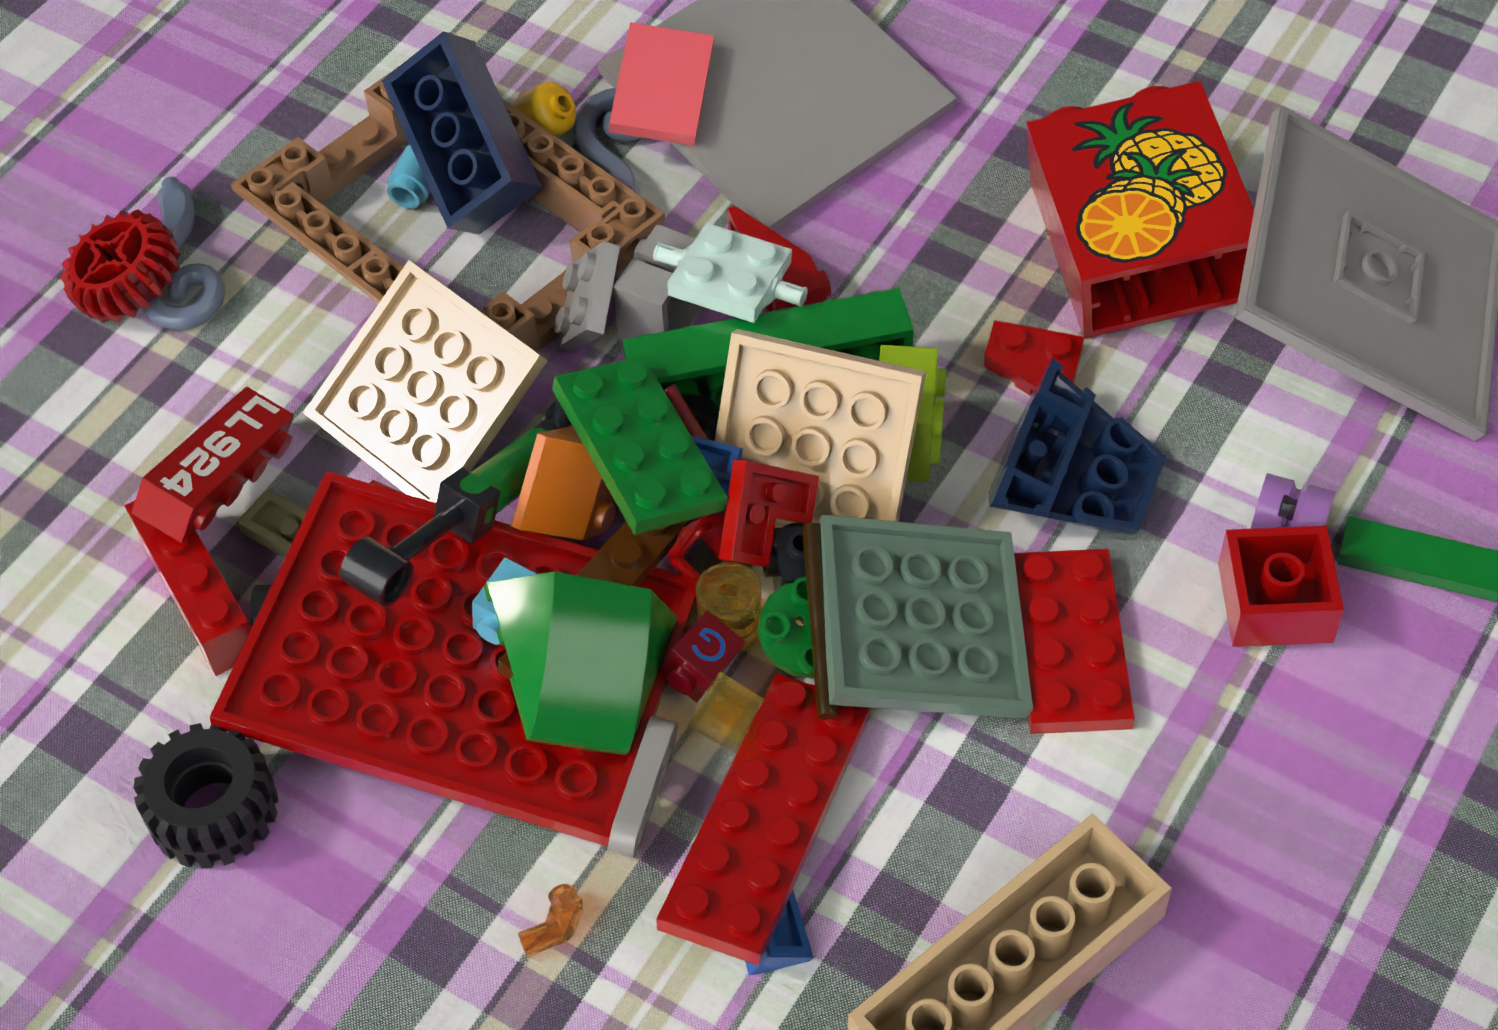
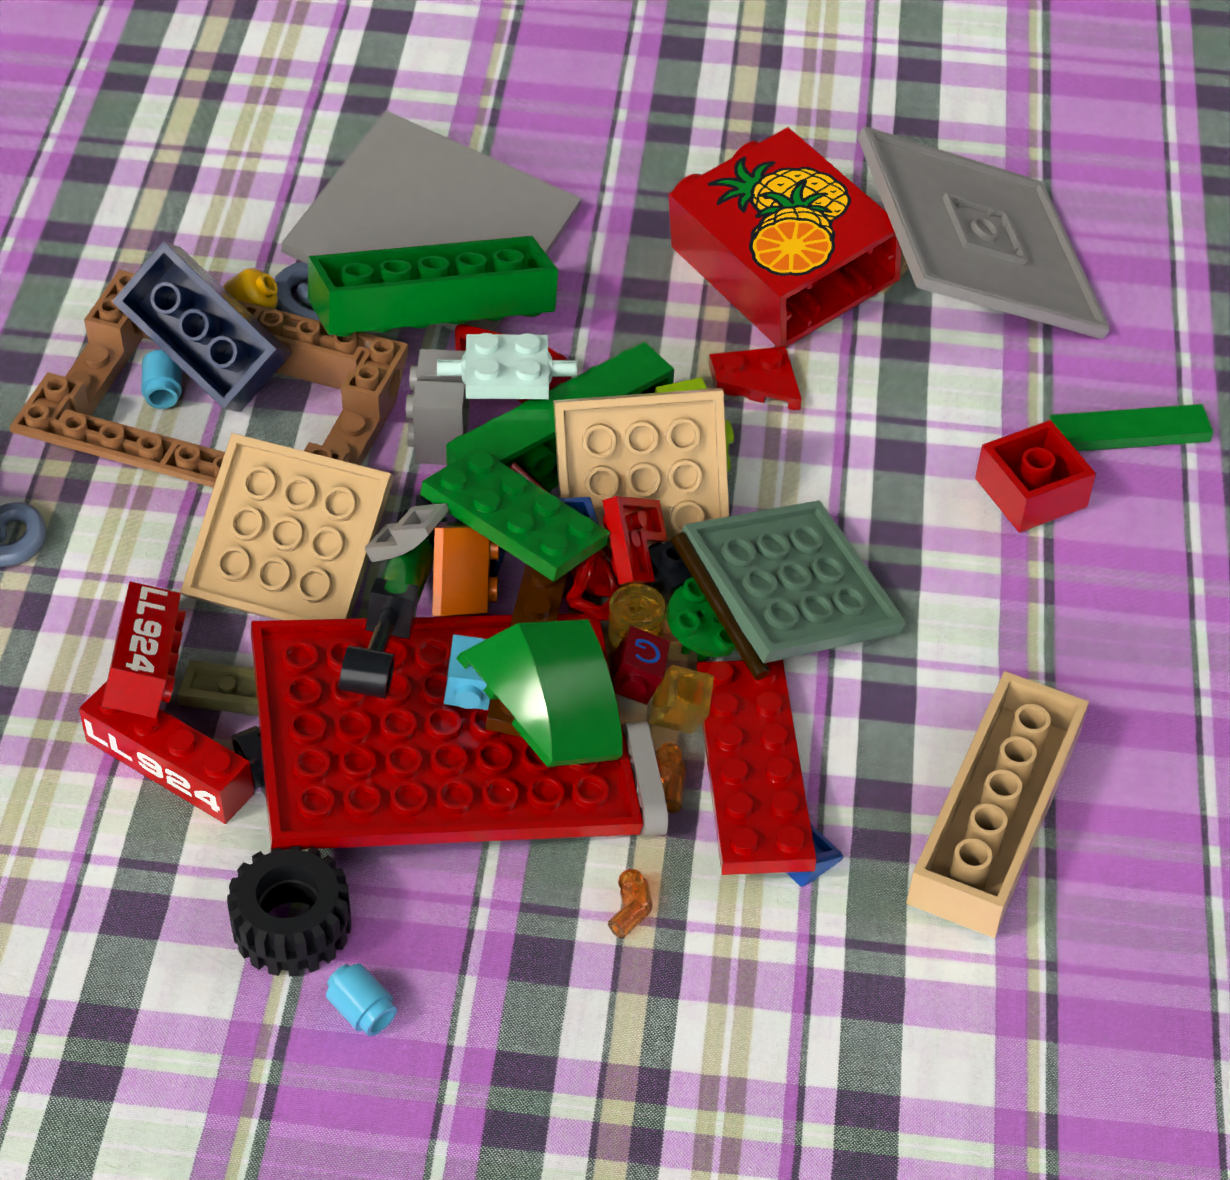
camera: 30 degrees left, 5 degrees down
(224, 919) = (360, 999): none -> medium azure brick
(524, 424) = (408, 533): none -> light grey slope
(587, 298) = (386, 423): light grey plate -> none
(661, 84) = (340, 225): coral tile -> none
(677, 794) = (672, 775): none -> clear orange arm
(717, 154) = (431, 285): none -> green brick
(1073, 642) = (907, 566): red plate -> none
(1076, 461) = (832, 437): dark blue wedge -> none
(1311, 504) = (997, 411): medium lavender wheel -> none

